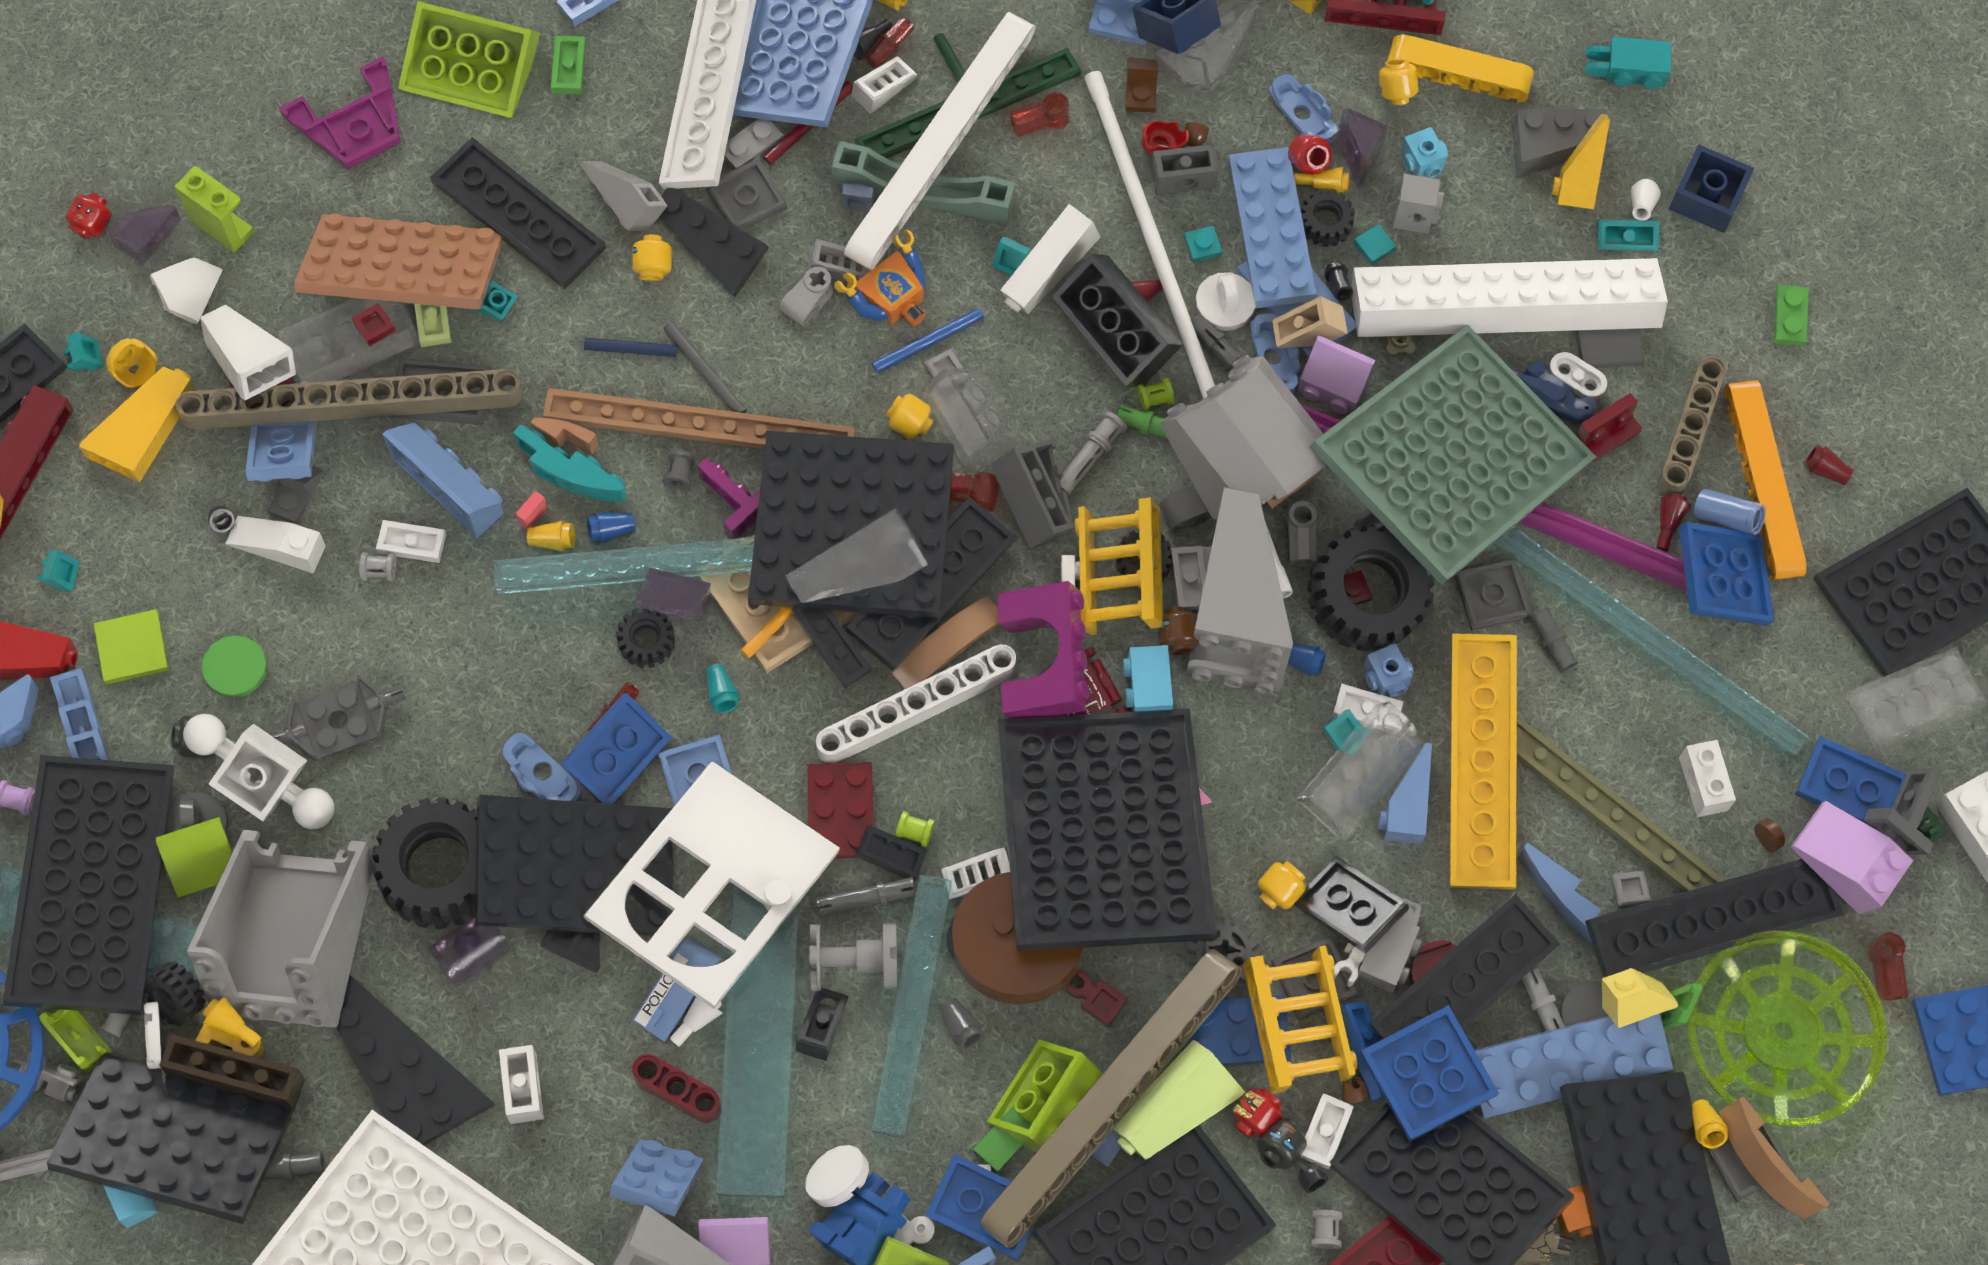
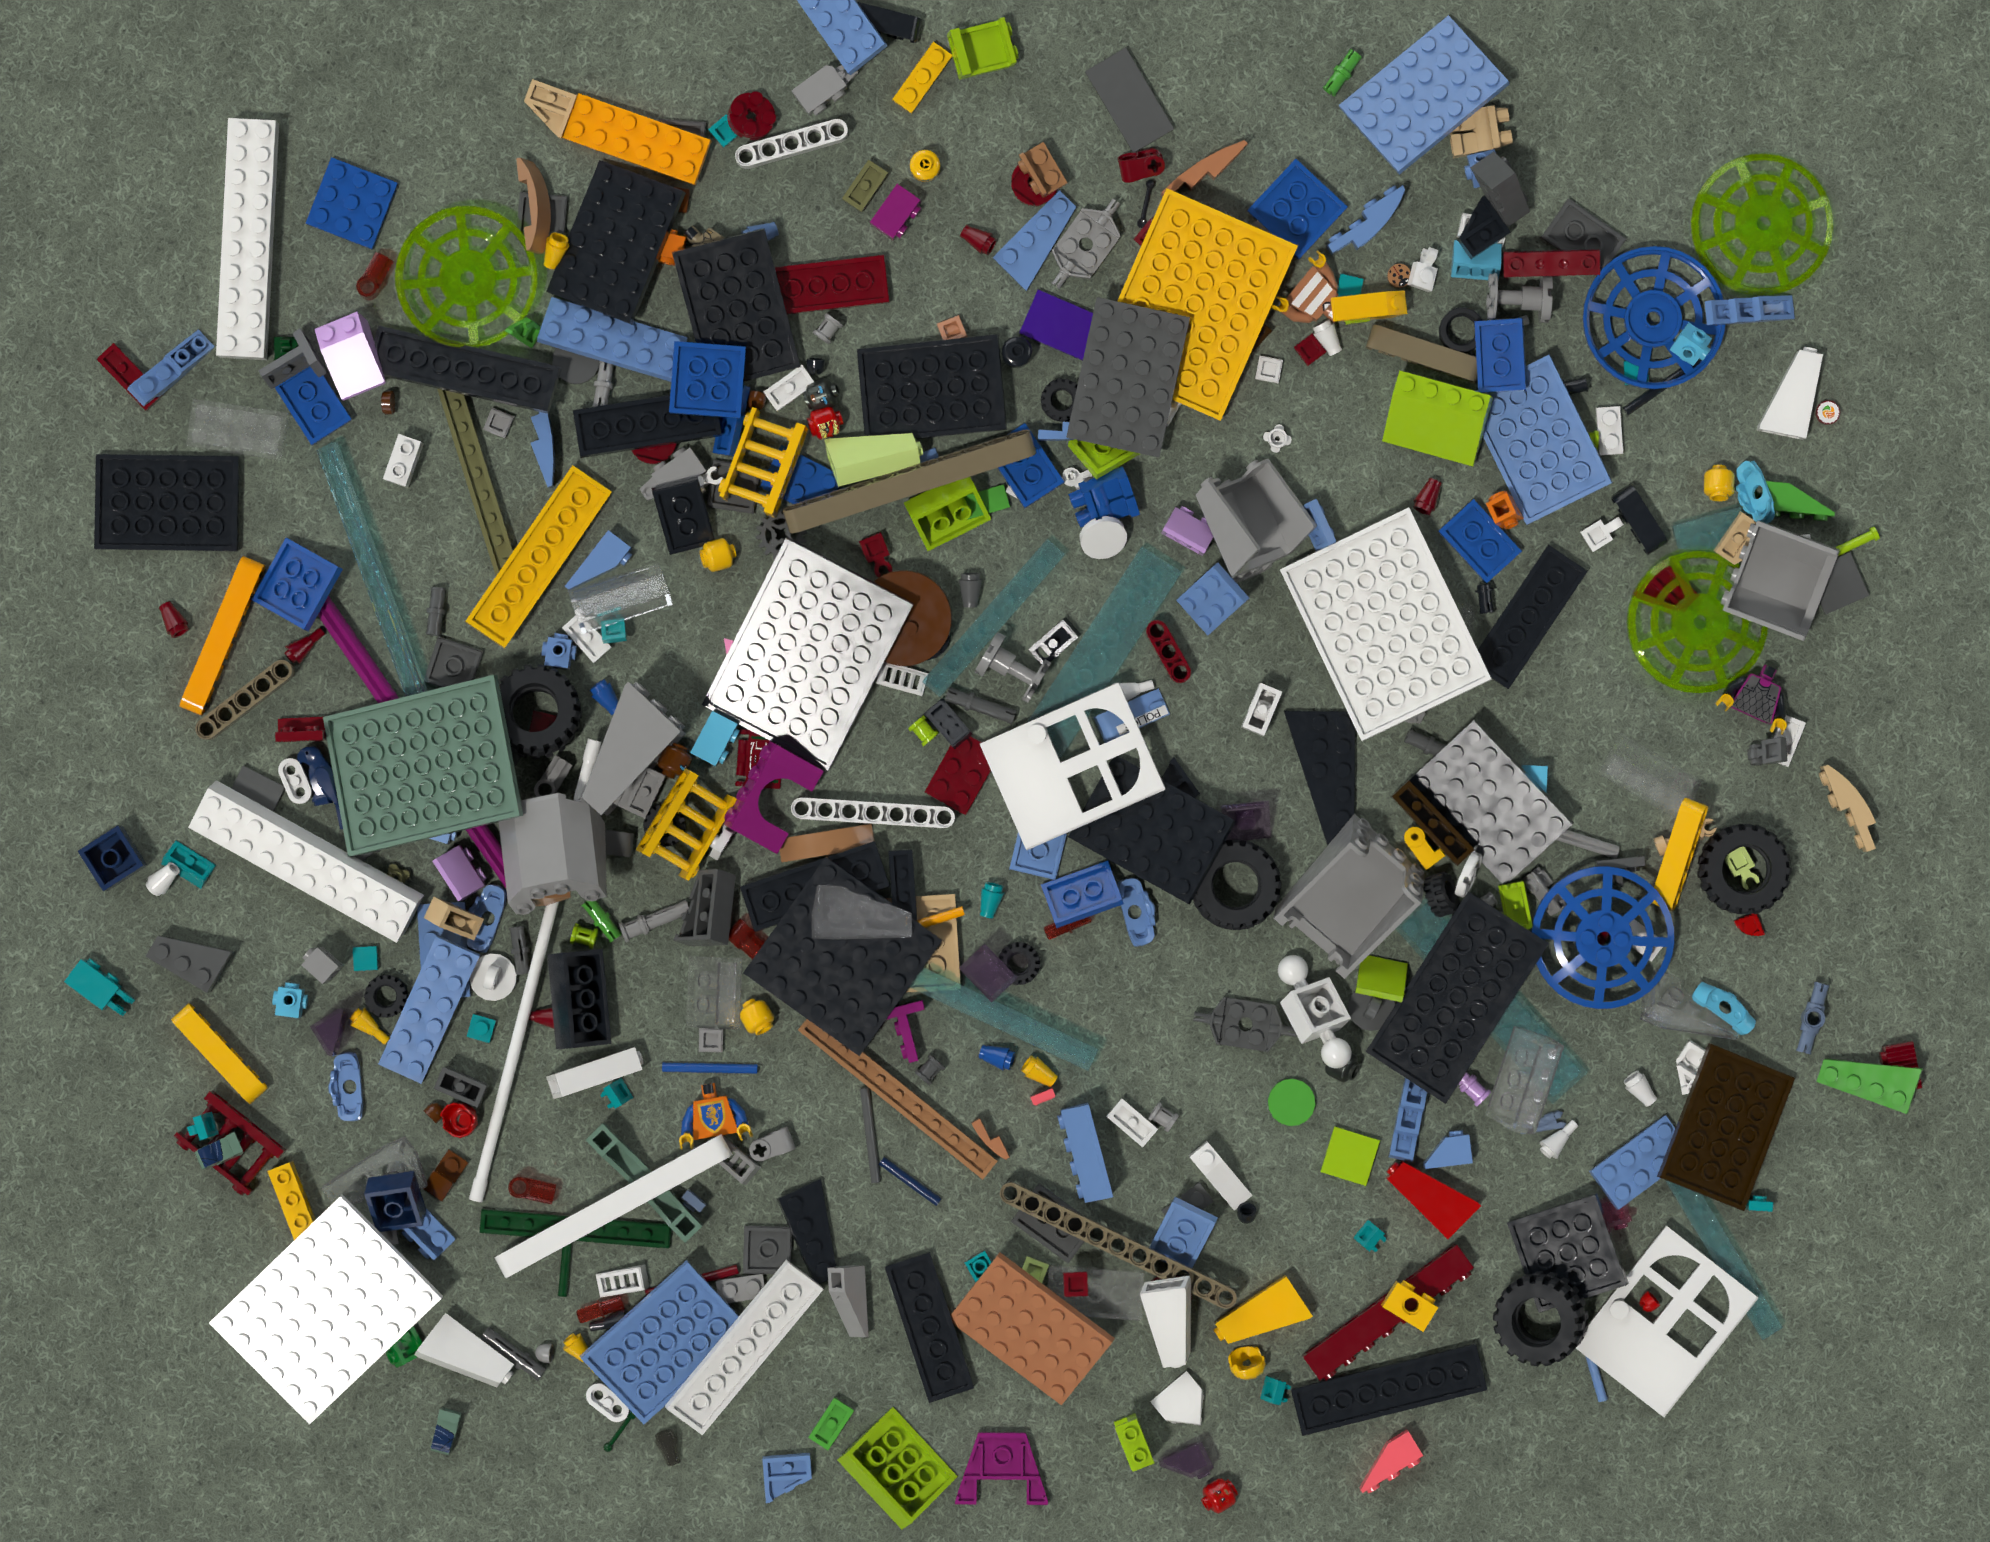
camera: 145 degrees left, 20 degrees up
(226, 1019) = (1420, 859): yellow cone -> none
(574, 474) = (997, 1104): teal slope -> none
(651, 258) = (859, 1236): yellow head -> none
(1310, 154) = (368, 1047): red head -> none
(1336, 274) = (408, 945): black pin -> none
(1398, 81) = (270, 1066): yellow head -> none
(1581, 172) = (193, 922): yellow slope -> none
(1634, 997) = (548, 348): light yellow slope -> none
(1730, 511) = (264, 624): medium blue pin -> none
(1791, 315) = (120, 739): bright green plate -> none

